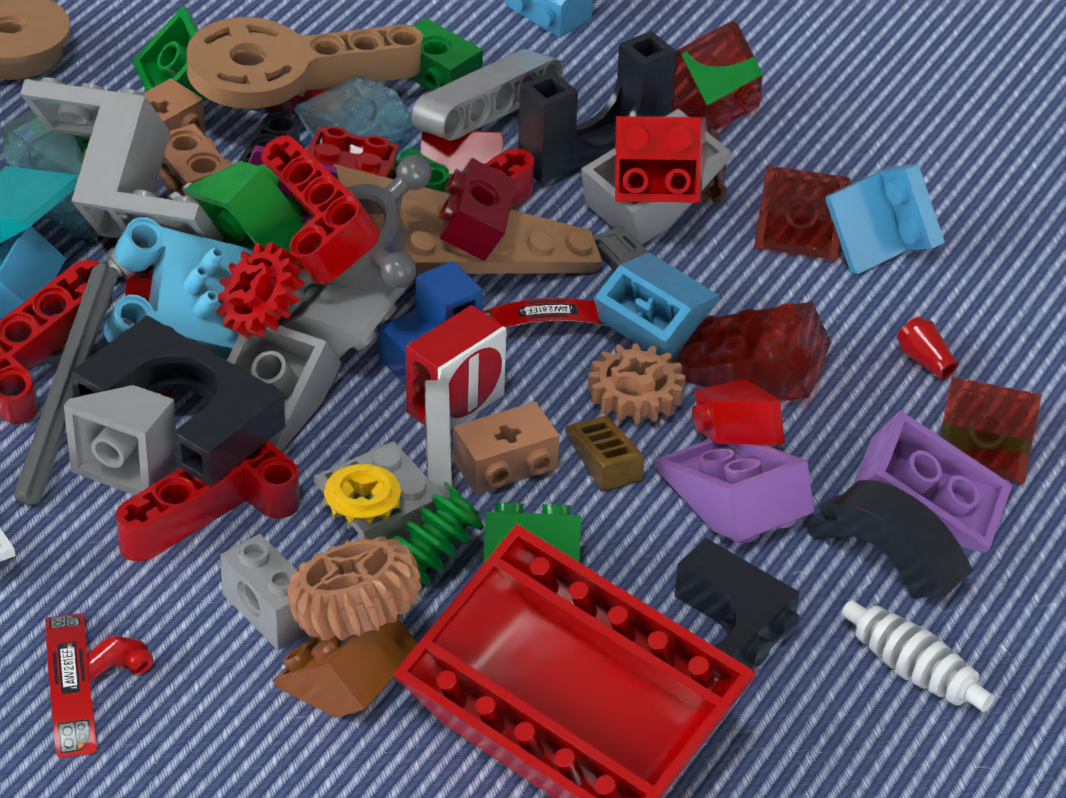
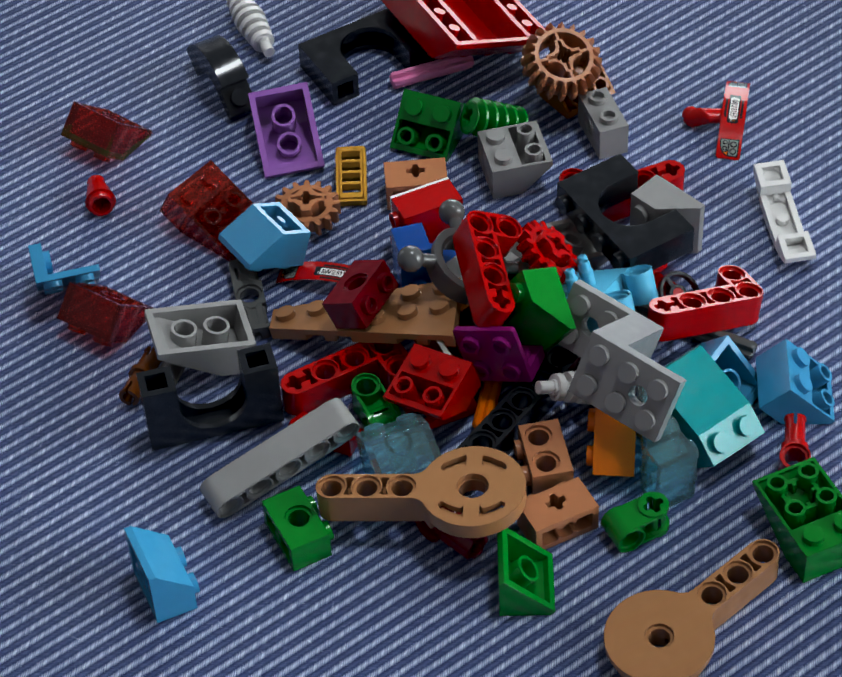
camera: 155 degrees left, 5 degrees up
(77, 350) = (692, 259): dark grey axle -> none
(364, 480) = (537, 114): yellow gear -> none
(438, 434) = (465, 172): light grey beam -> none
(659, 159) = (202, 303): red slope -> none
(717, 77) = (93, 434): clear red slope -> none
(738, 414) = (259, 160): red slope -> none
(940, 476) = (175, 105): medium lavender slope -> none

